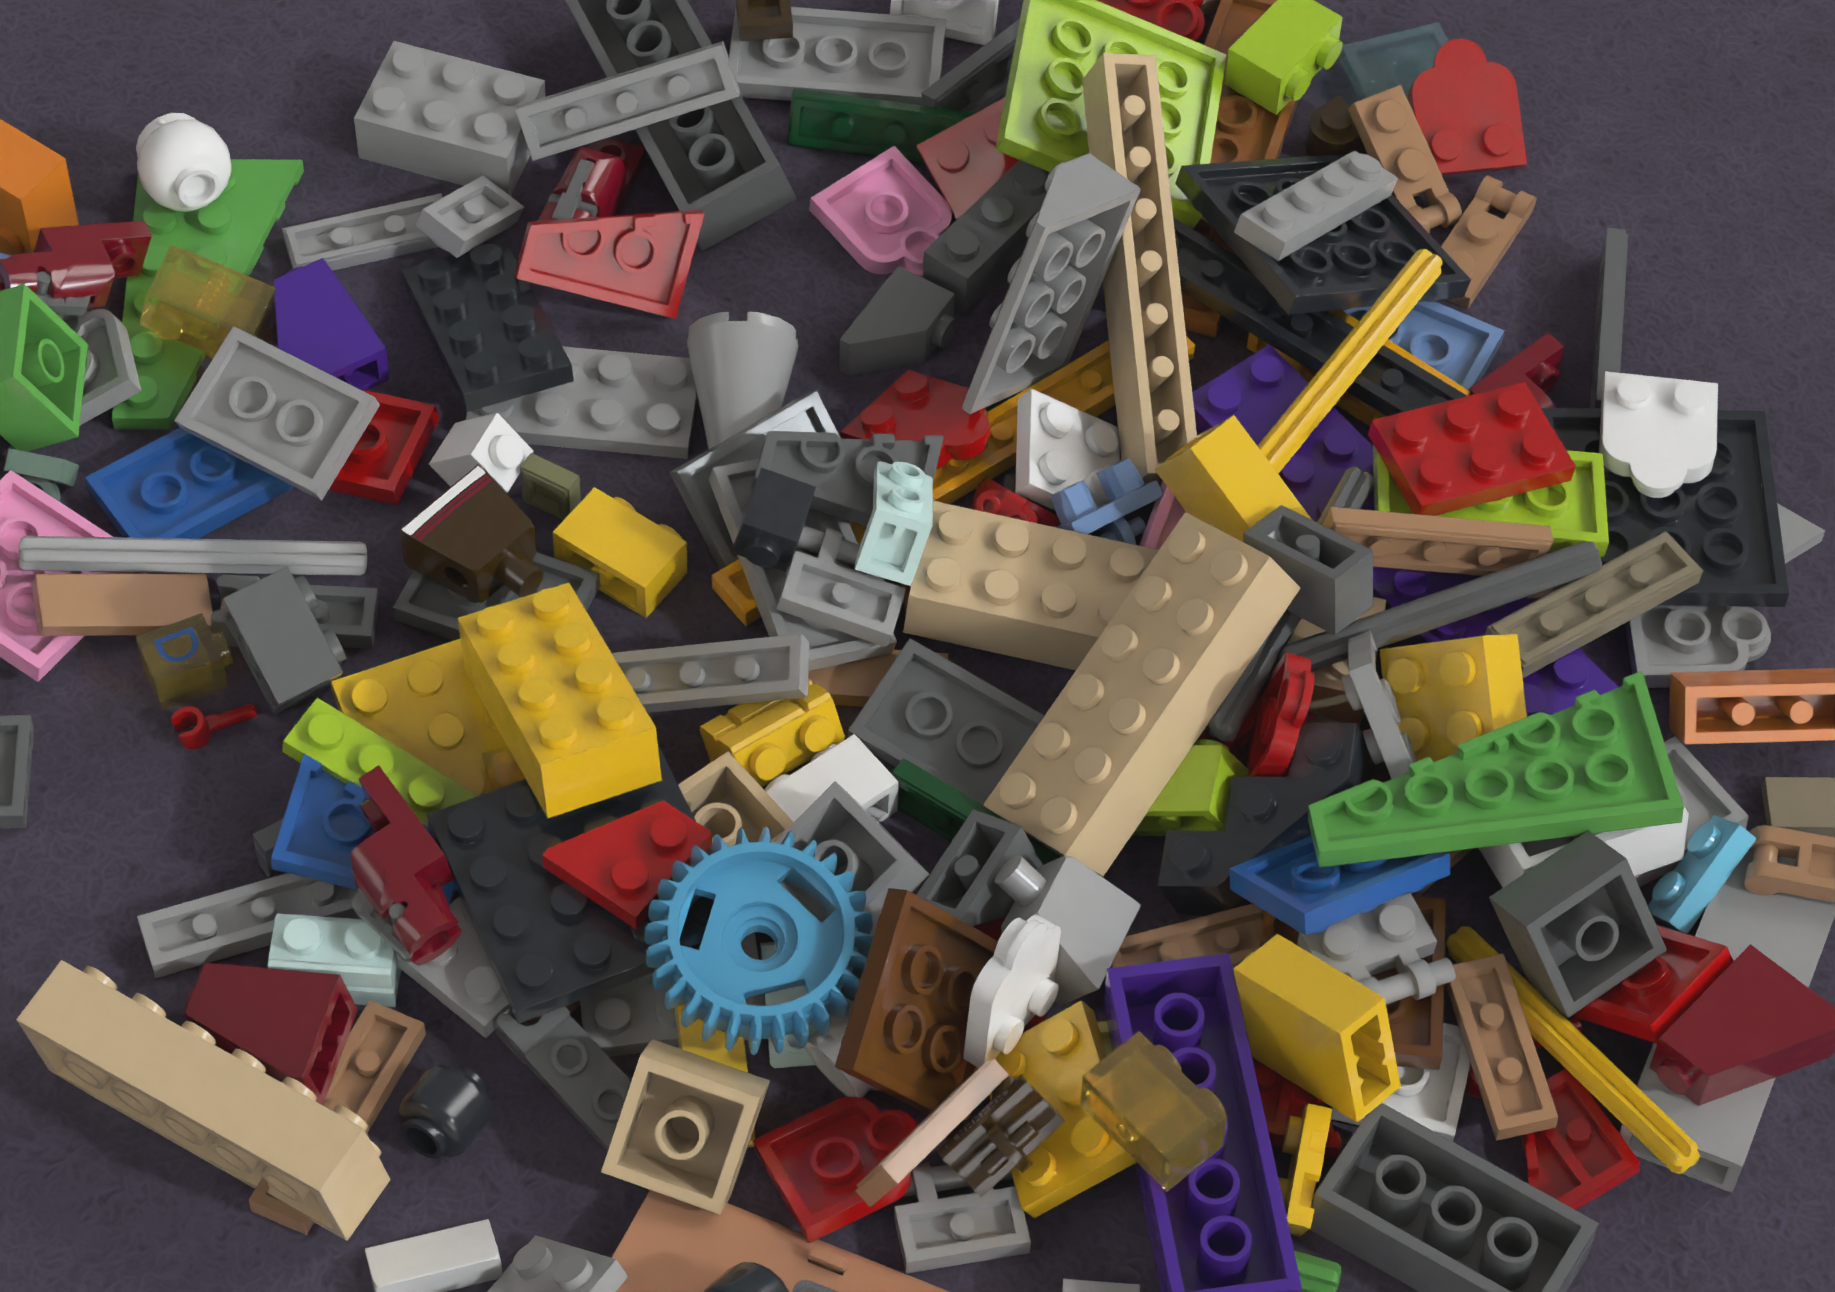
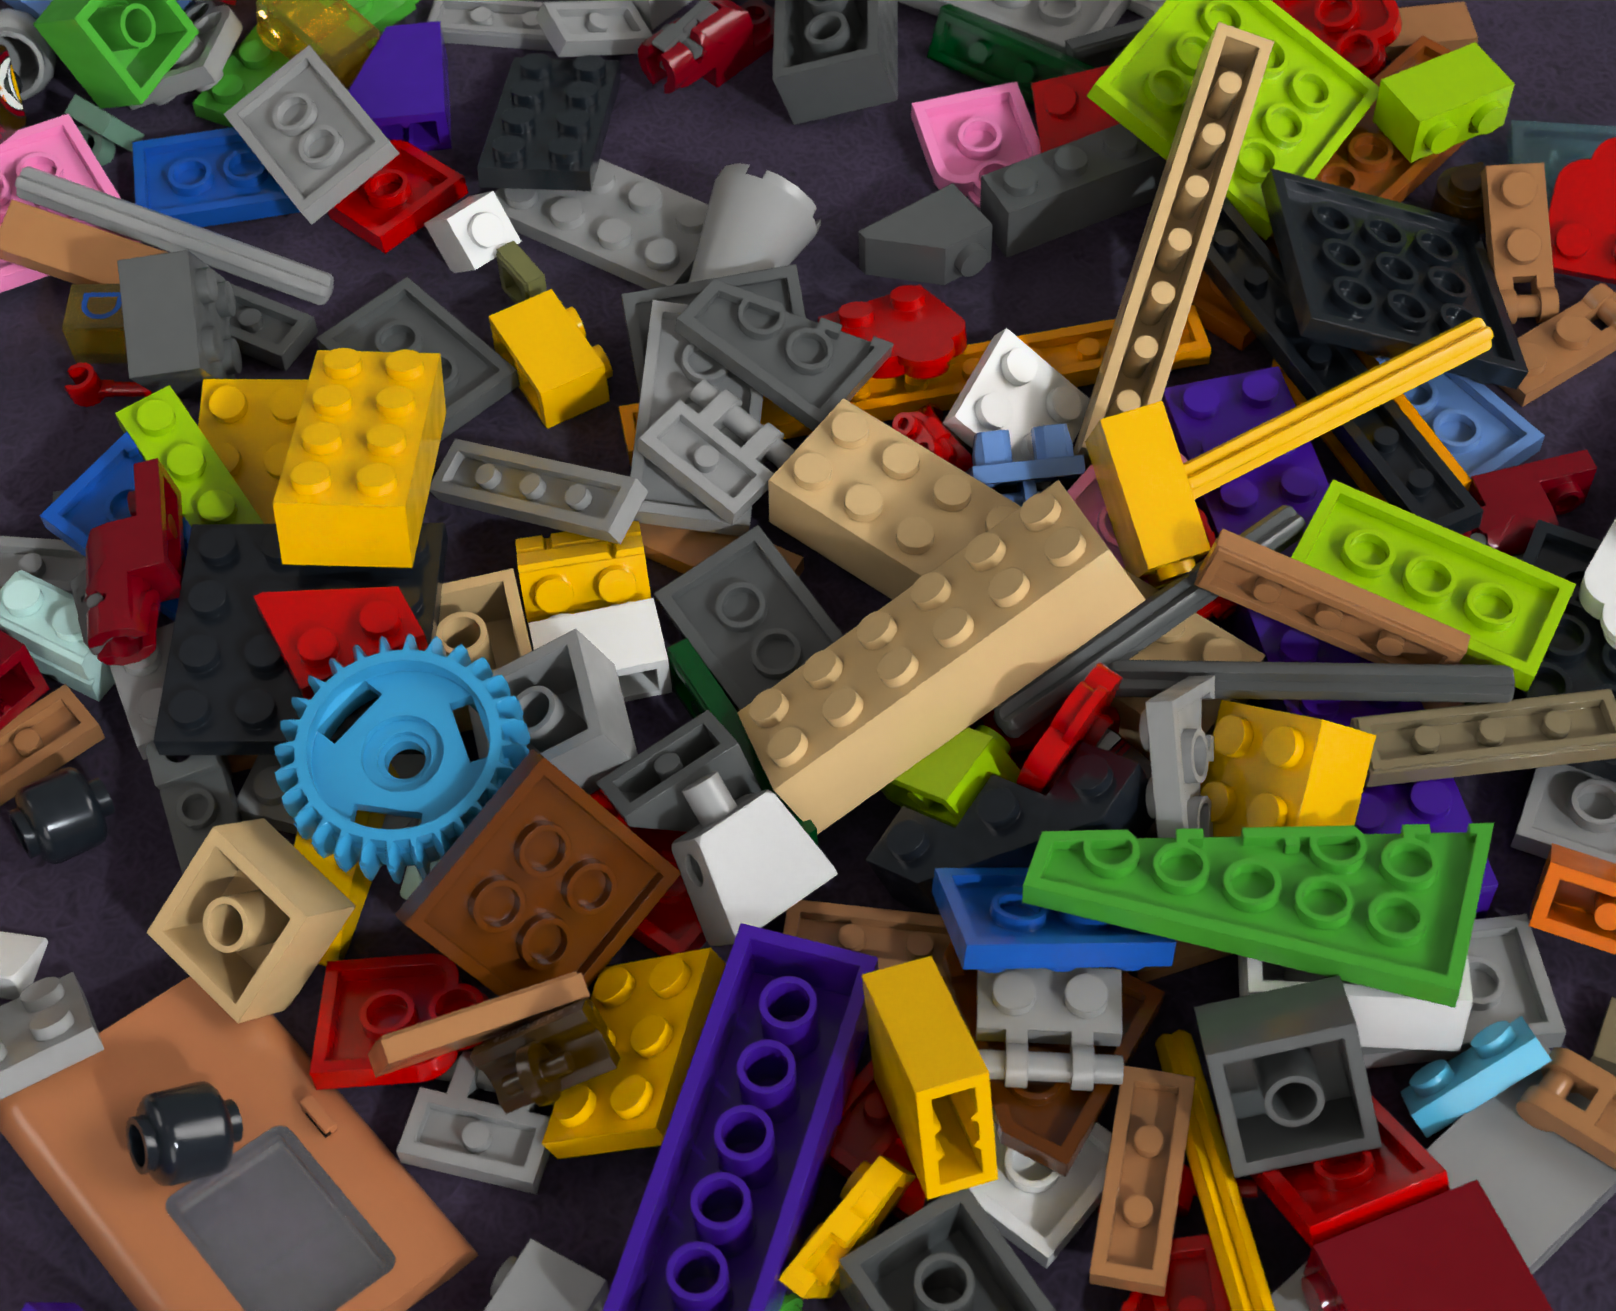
camera: 30 degrees right, 0 degrees up
(473, 540) = (409, 295): dark brown torso -> none
(614, 258) = (692, 97): wing -> none
(773, 520) = (673, 361): black brick -> none
(897, 523) = (785, 402): light aqua bracket -> none
(1012, 988) = (638, 903): white plate -> none
(1054, 279) = (1065, 225): light grey slope -> none
(1154, 1110) = (688, 1095): clear yellow brick -> none
(1316, 205) = (1392, 246): light grey plate -> none
(1326, 566) = (1185, 588): dark grey slope -> none
(1471, 450) = (1426, 530): red plate -> none

